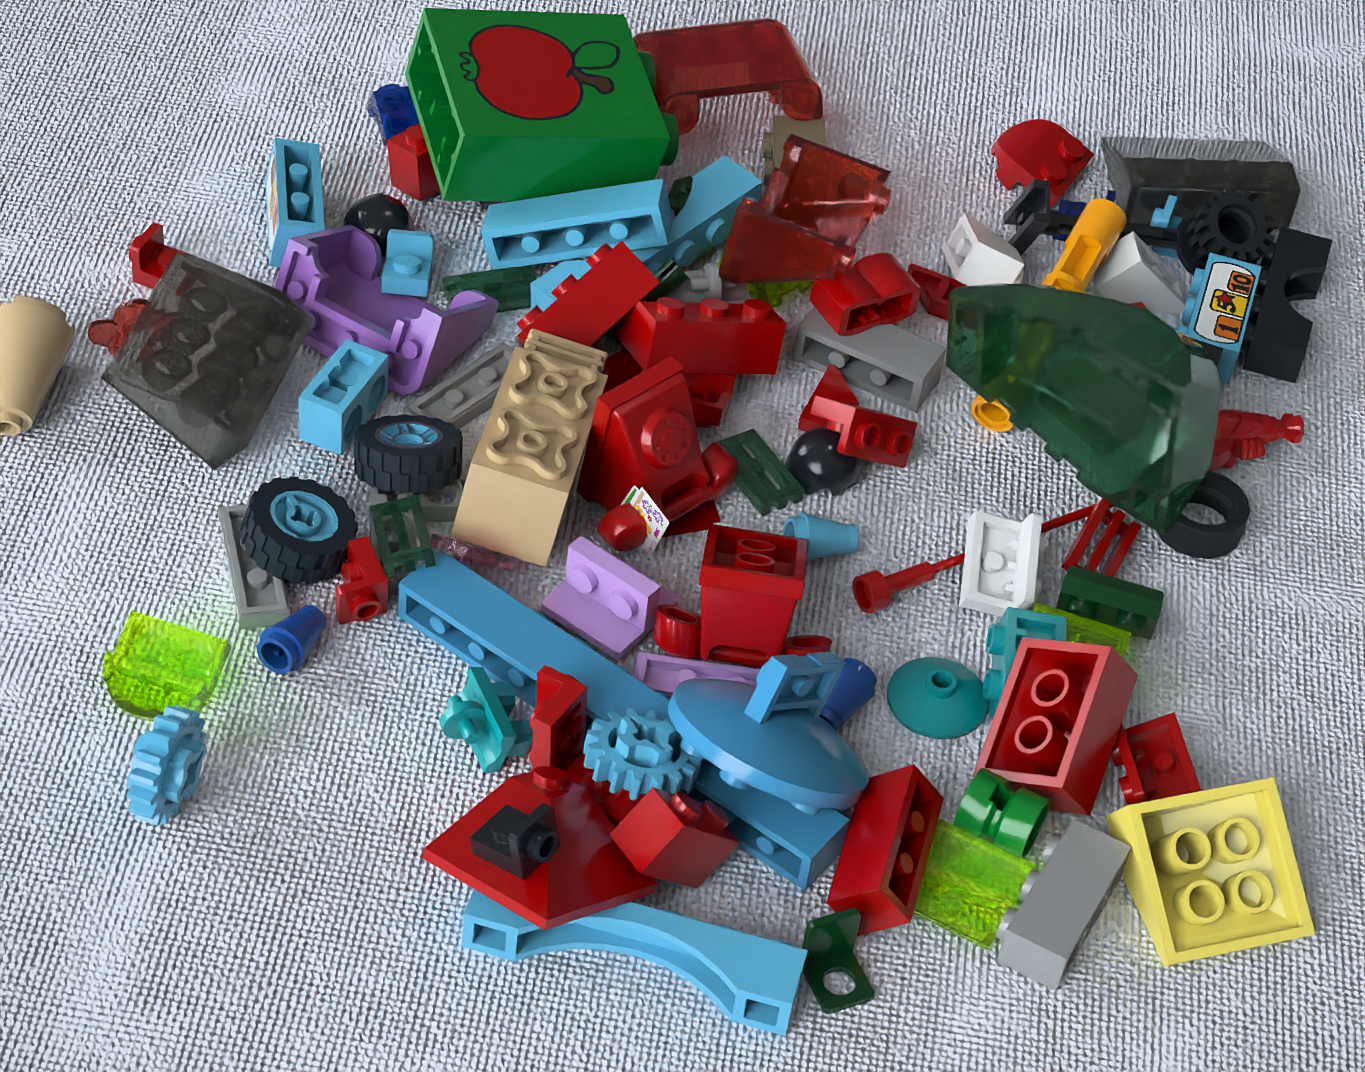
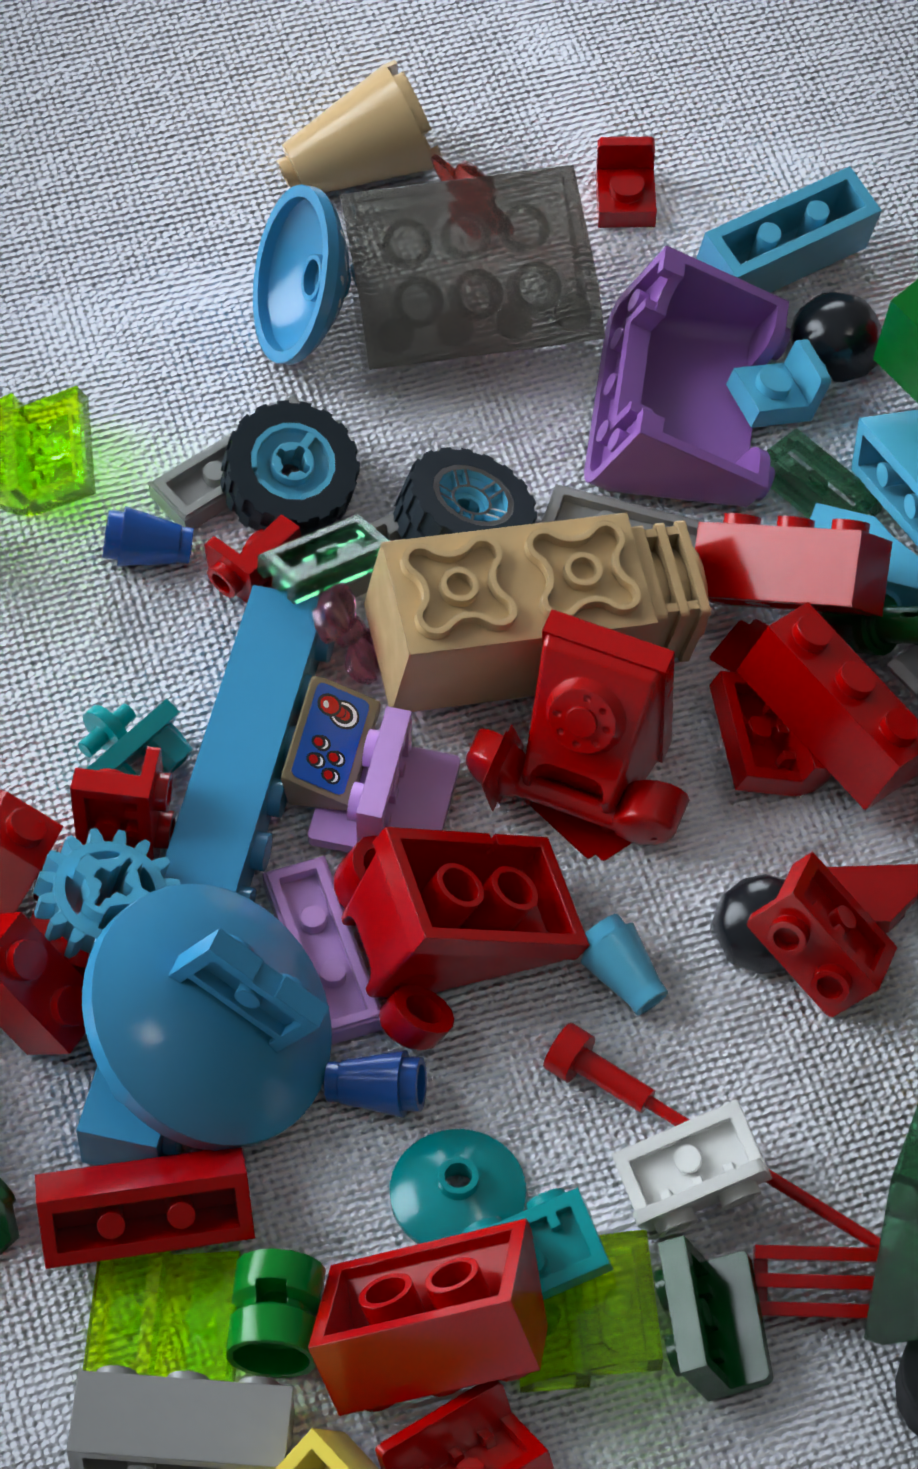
camera: 70 degrees right, 10 degrees up
(120, 455) = (299, 275): none -> dark azure dish
(343, 396) = (513, 416): medium azure brick -> none
(560, 603) = (328, 745): none -> slope
(752, 476) = (678, 901): clear green tile -> none

